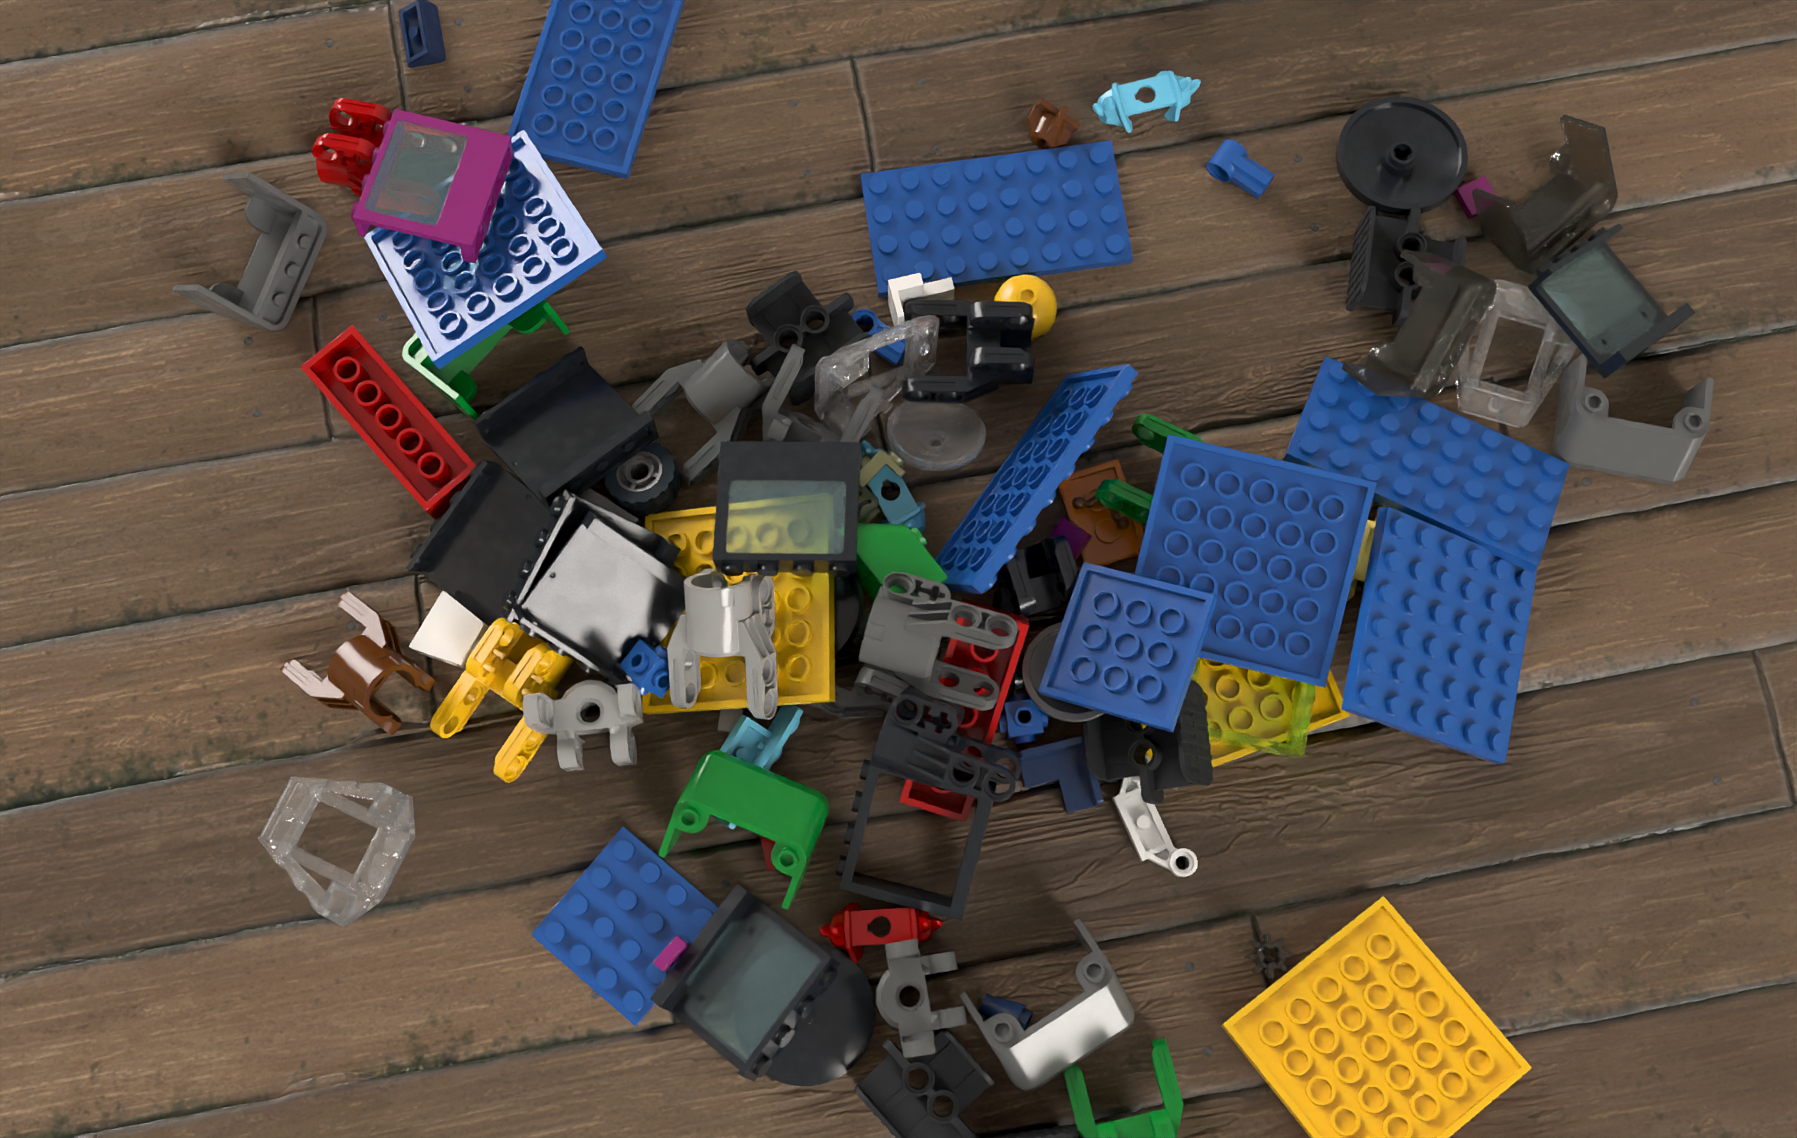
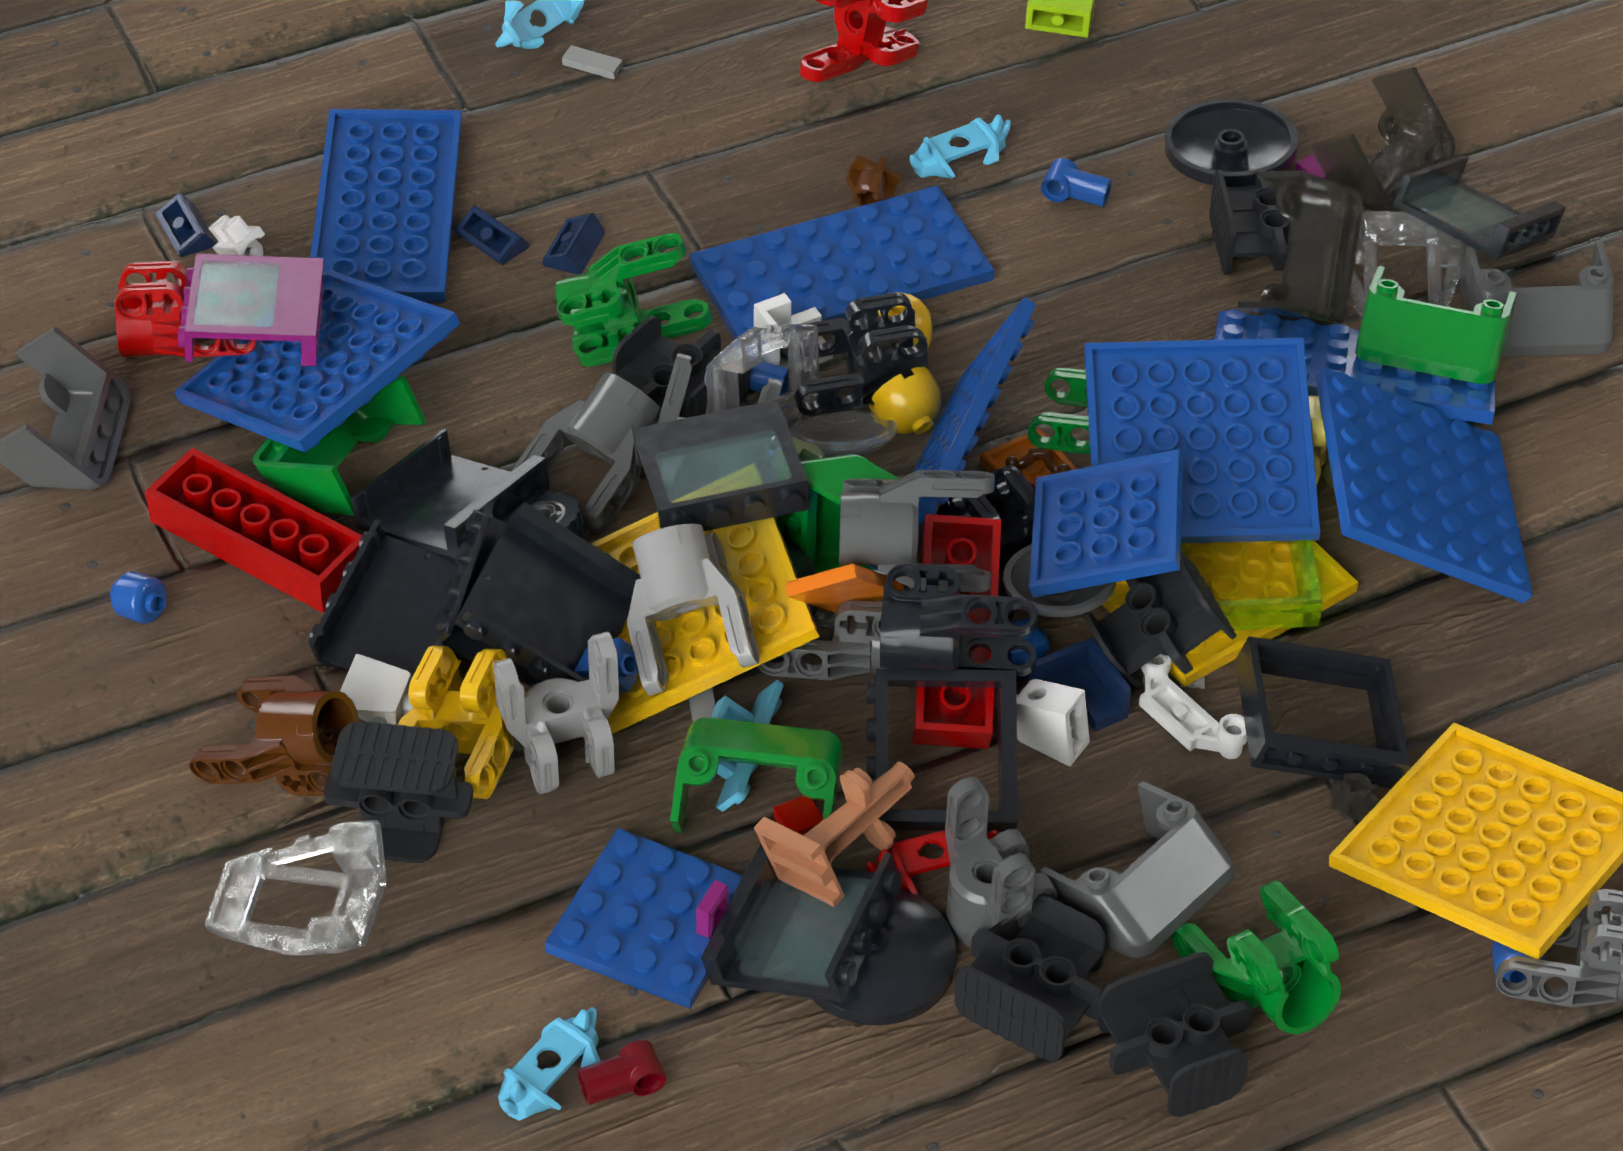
camera: 15 degrees left, 30 degrees down
(278, 470) = (138, 597): none -> blue head
(429, 766) = (402, 781): none -> black piece
(457, 70) = (236, 237): none -> white hips
(523, 1045) = (527, 1086): none -> medium azure piece
(566, 1090) = (632, 1070): none -> dark red piece
(689, 107) = (490, 236): none -> dark blue slope
(761, 135) = (574, 244): none -> dark blue slope
(765, 929) = (807, 858): none -> nougat piece
(767, 238) = (607, 304): none -> green piece
(849, 673) = (839, 585): none -> orange tile
(1006, 412) = (909, 401): none -> yellow cylinder
(1031, 816) = (1053, 720): none -> white torso
(1324, 874) = (1316, 756): none -> black window
(1507, 465) = (1431, 335): none -> green windscreen

